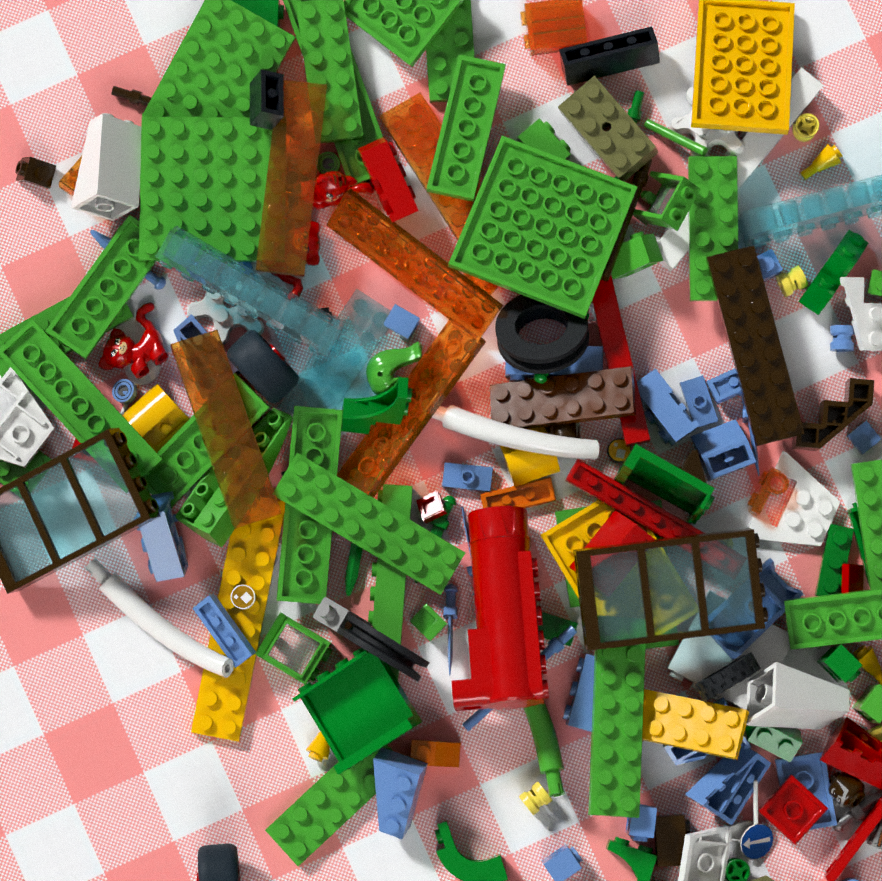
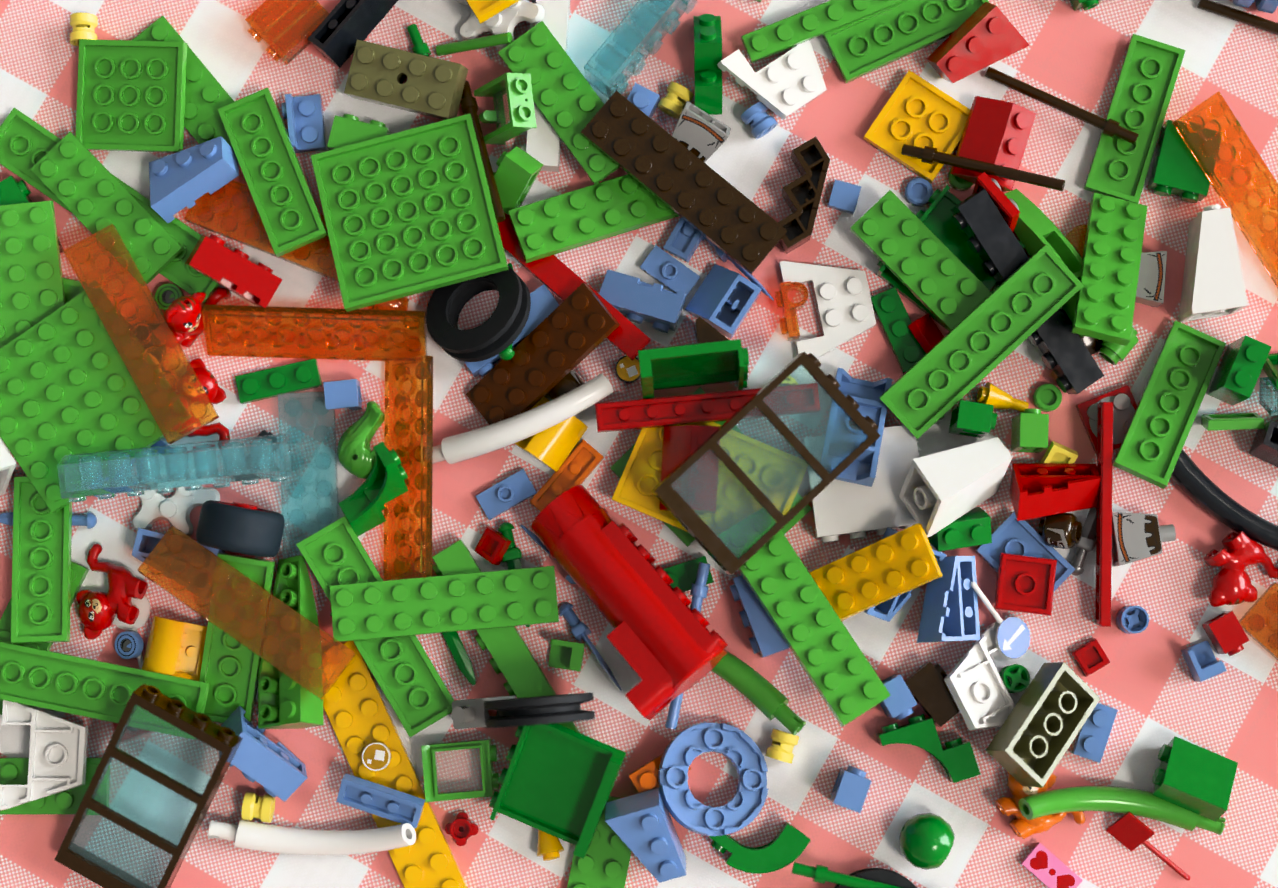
camera: 30 degrees left, 0 degrees up
(134, 572) = (258, 807): none -> light yellow wheel
(266, 99) = (64, 277): black brick -> none
(270, 686) = (469, 829): none -> red plate
(363, 279) = (278, 380): none -> green plate
(406, 87) = (190, 174): none -> medium blue wedge
(503, 786) = (750, 770): none -> medium blue plate
(514, 107) = (305, 122): none -> medium blue bracket
(666, 319) = (585, 217): none -> bright green plate
(727, 676) = (878, 505): black tyre -> none
(793, 317) = (700, 131): none -> light grey torso

